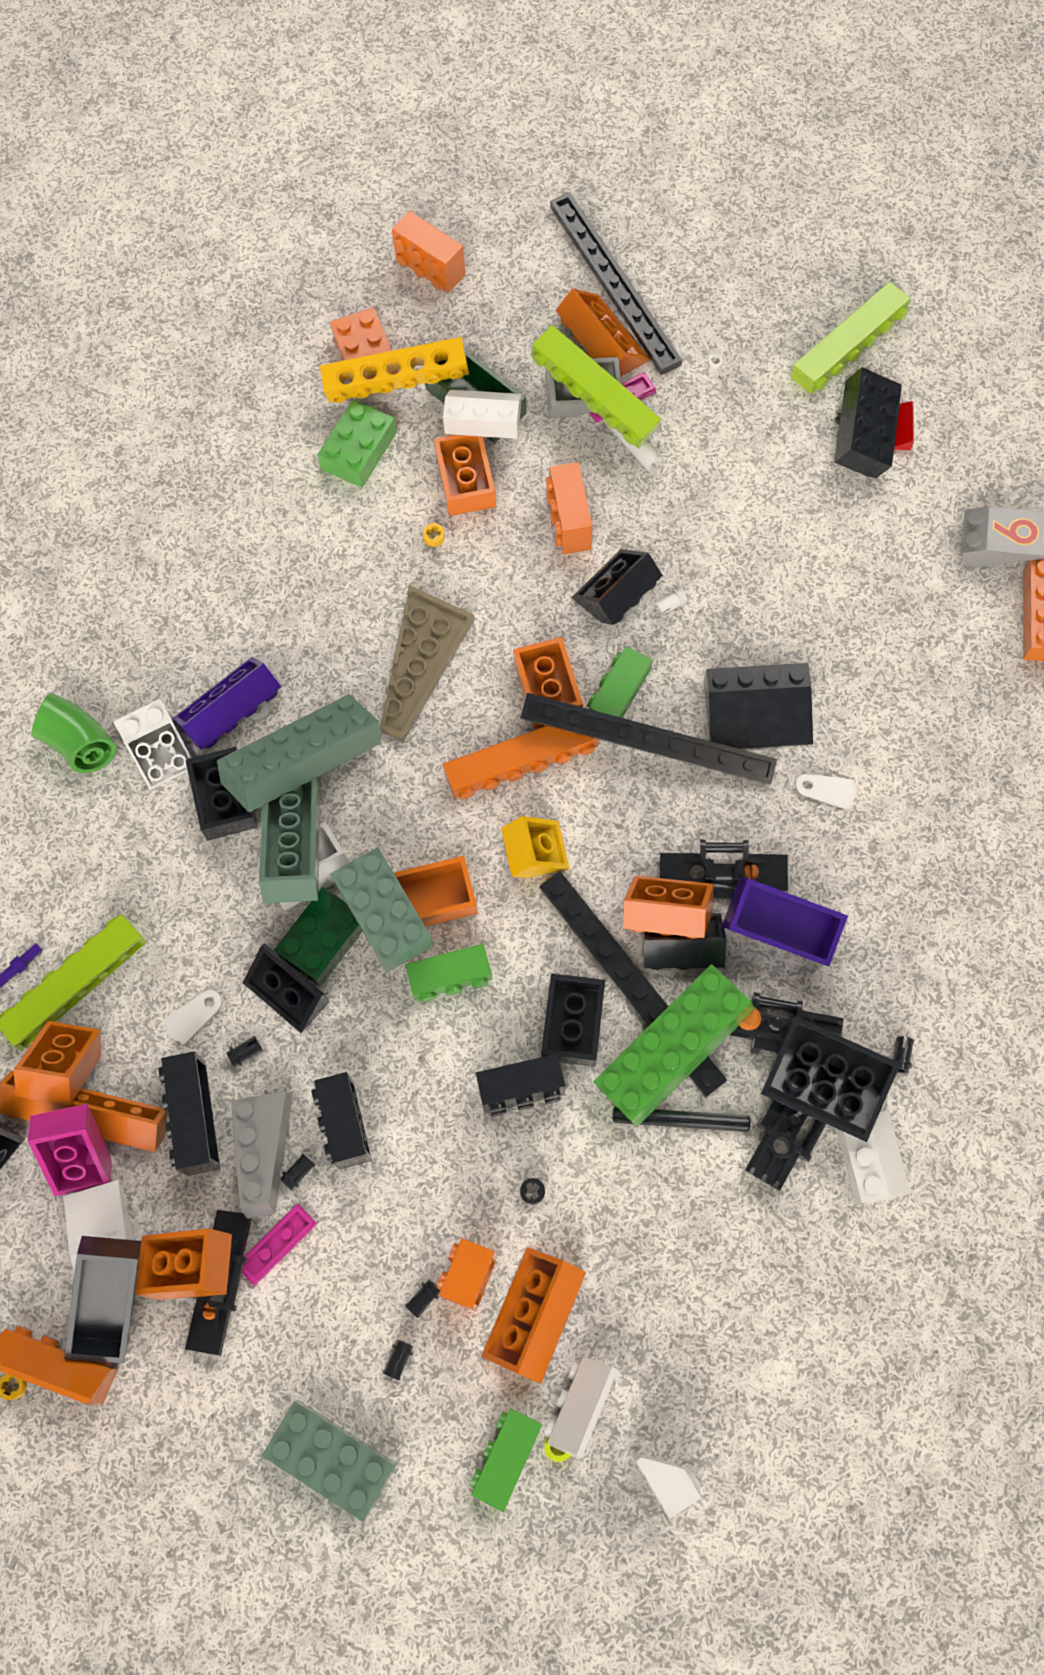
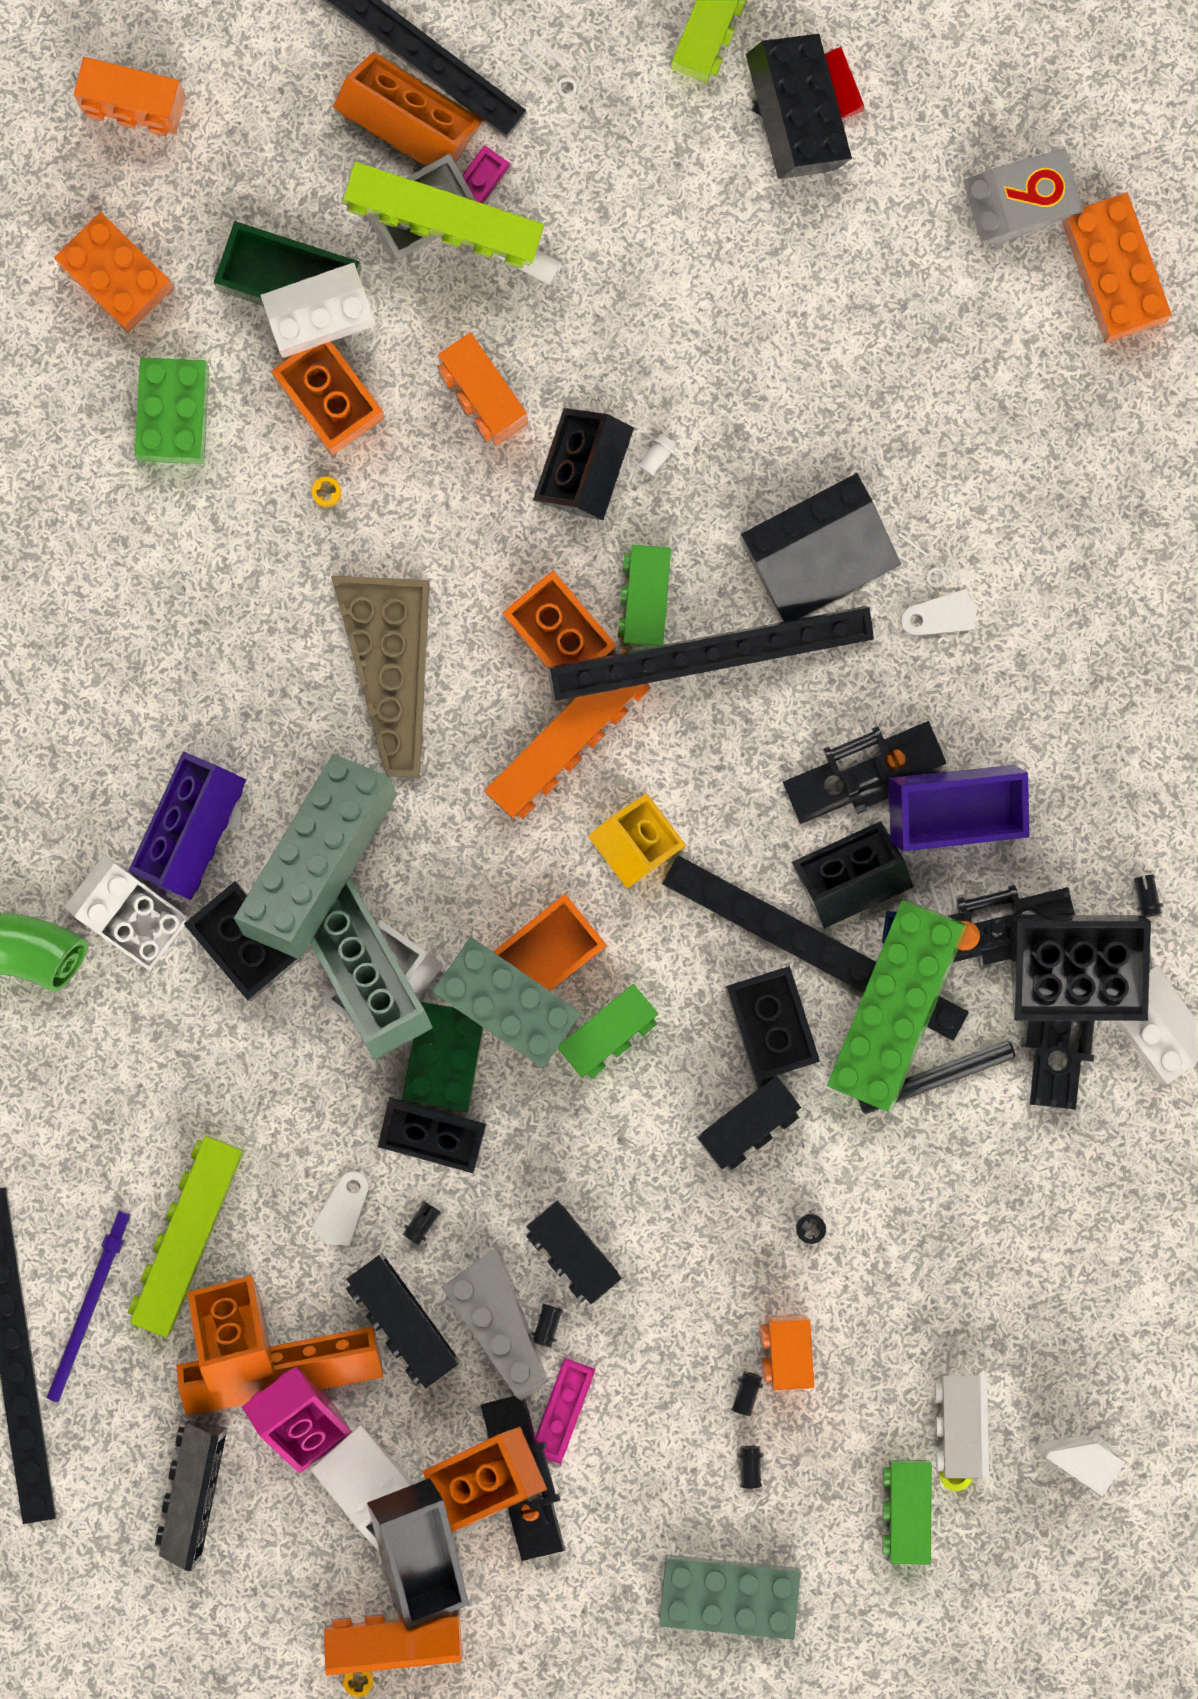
camera: 30 degrees left, 15 degrees up
(382, 364) = (105, 340): yellow brick -> none
(533, 1314) = (871, 1356): orange slope -> none
(668, 907) = (822, 848): orange brick -> none

